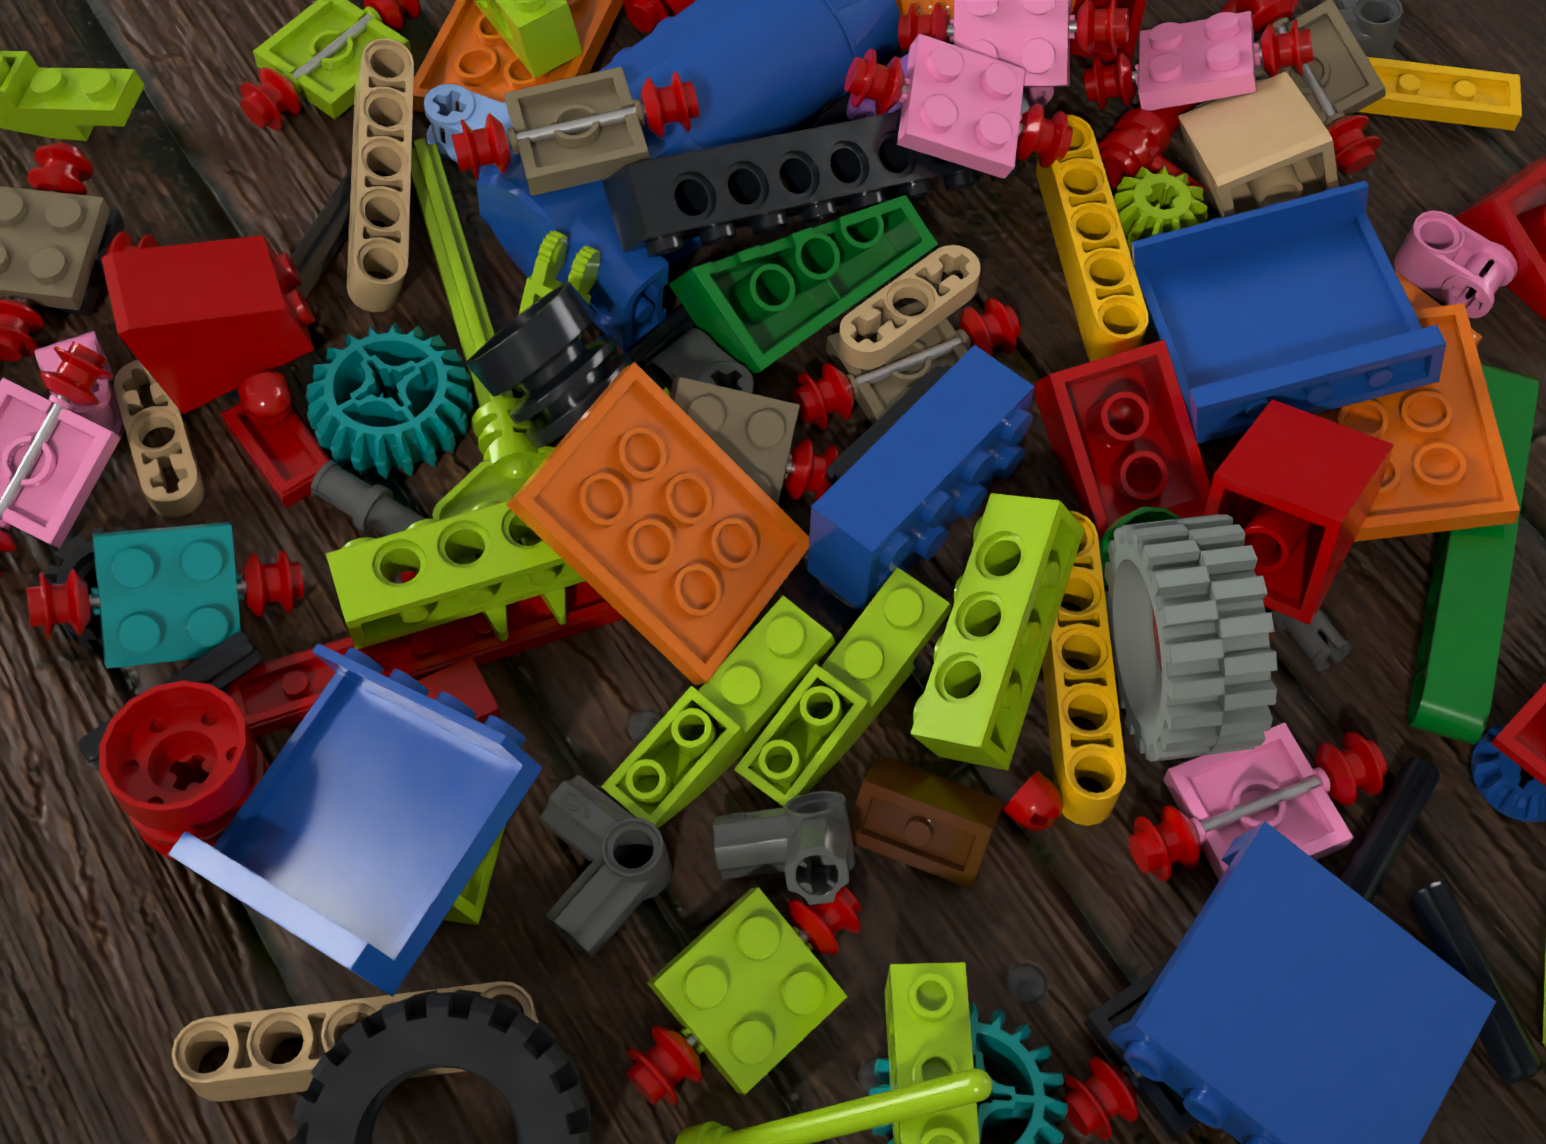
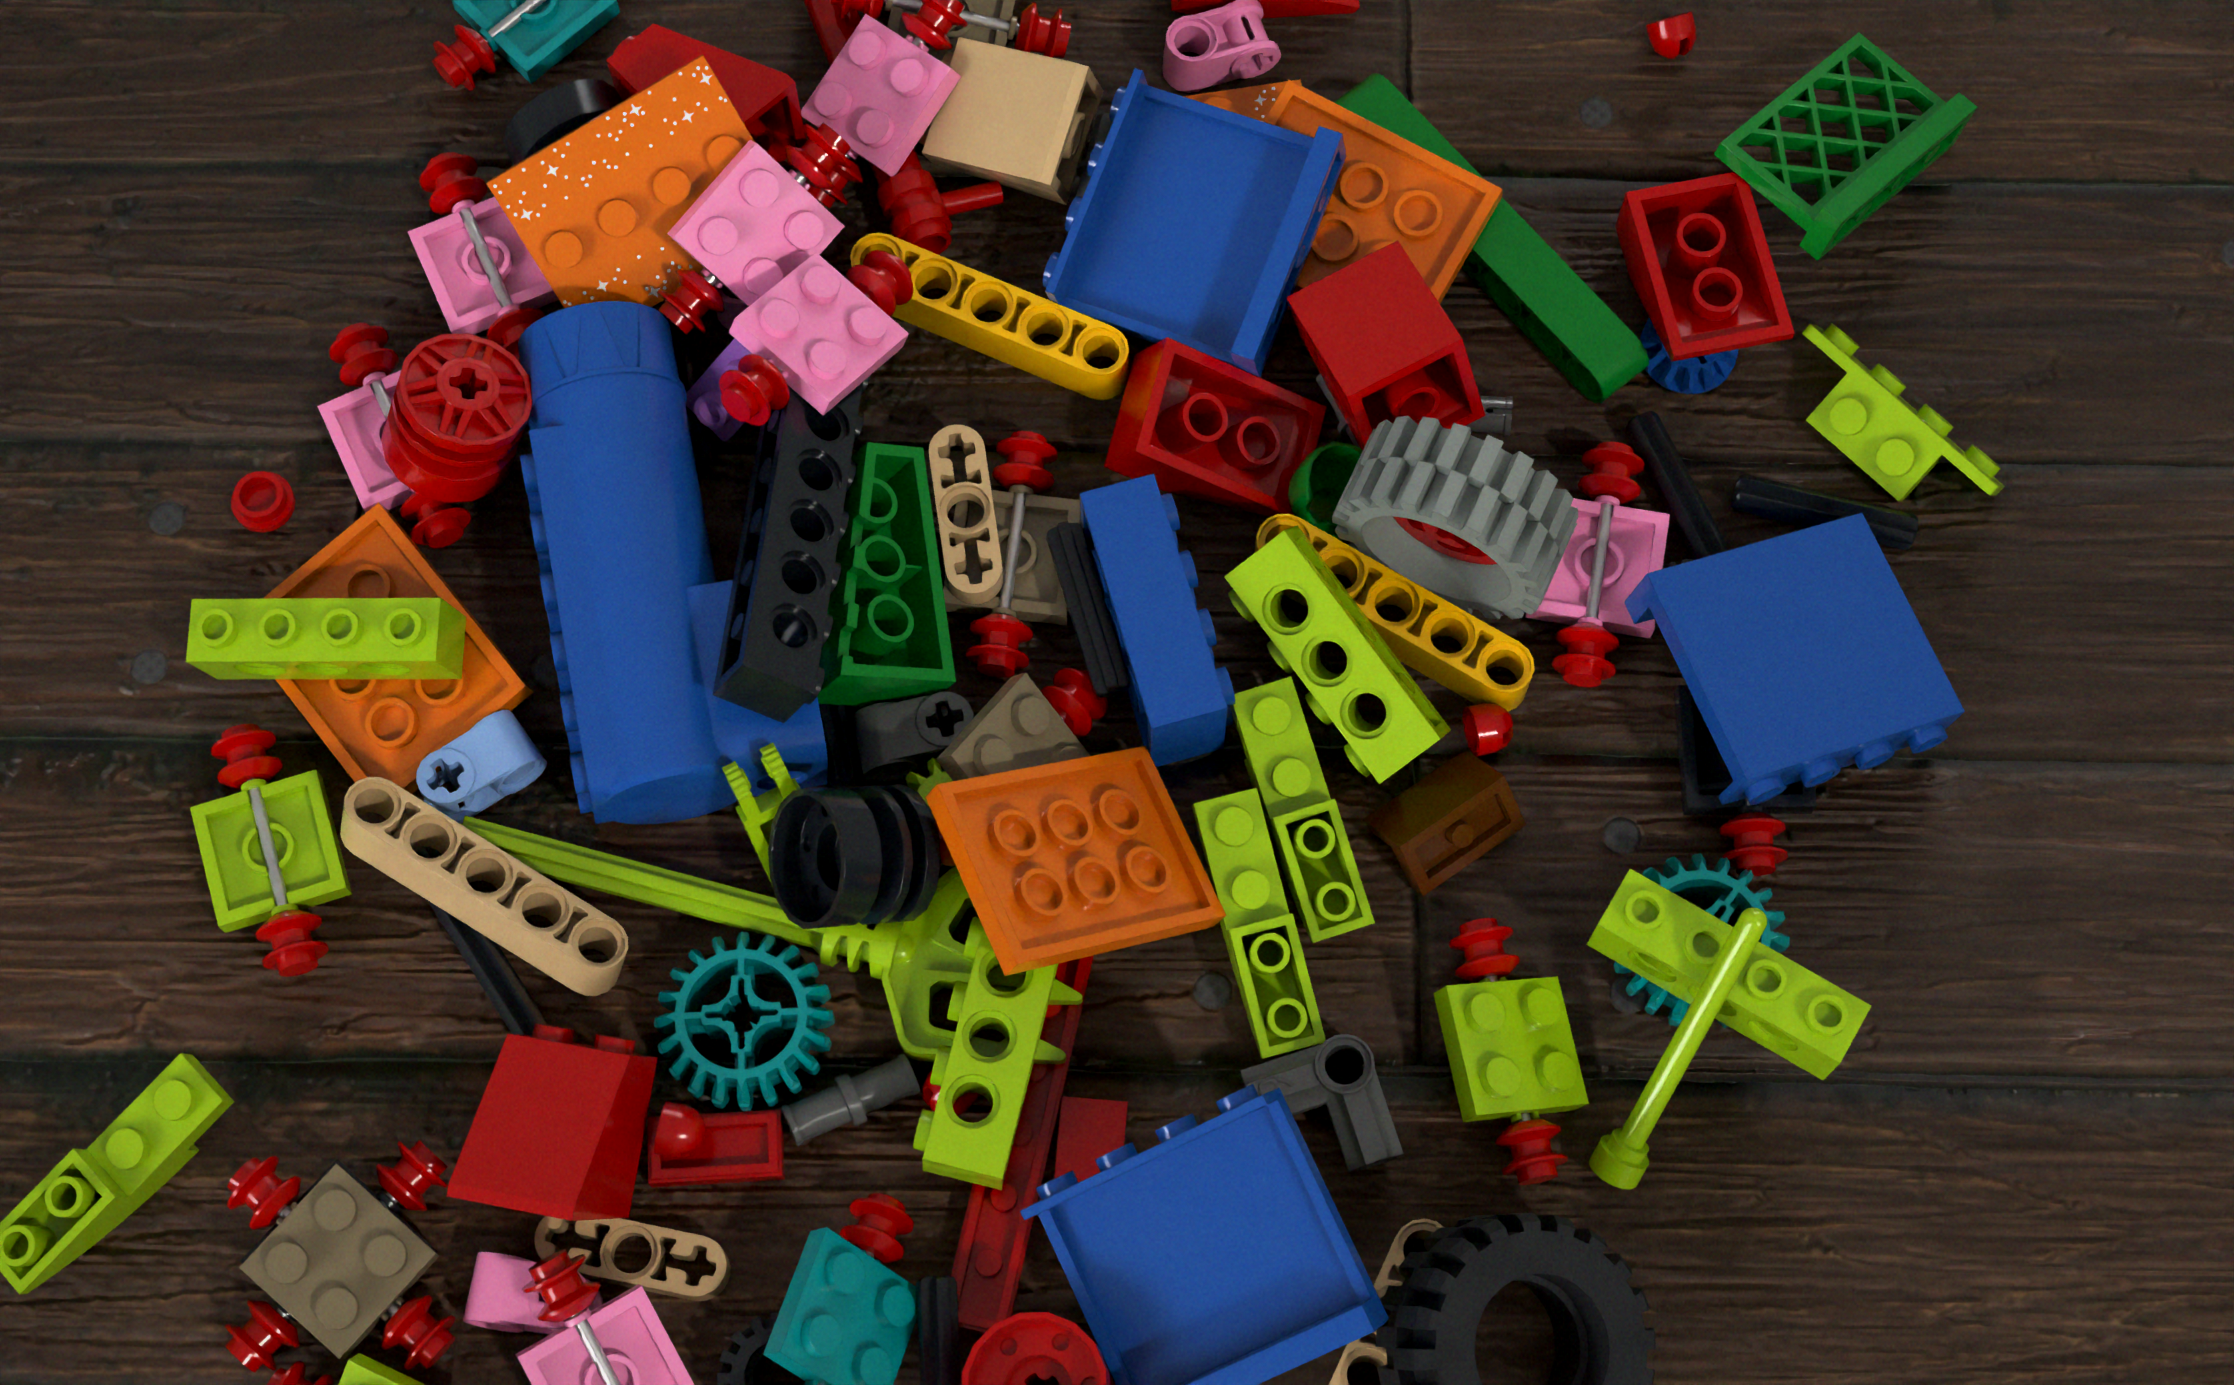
camera: 55 degrees left, 10 degrees up
(576, 129) = (638, 682): dark tan plate -> none
(804, 839) = (1411, 923): dark grey piece -> none
(1157, 204) = (1021, 227): lime gear -> none

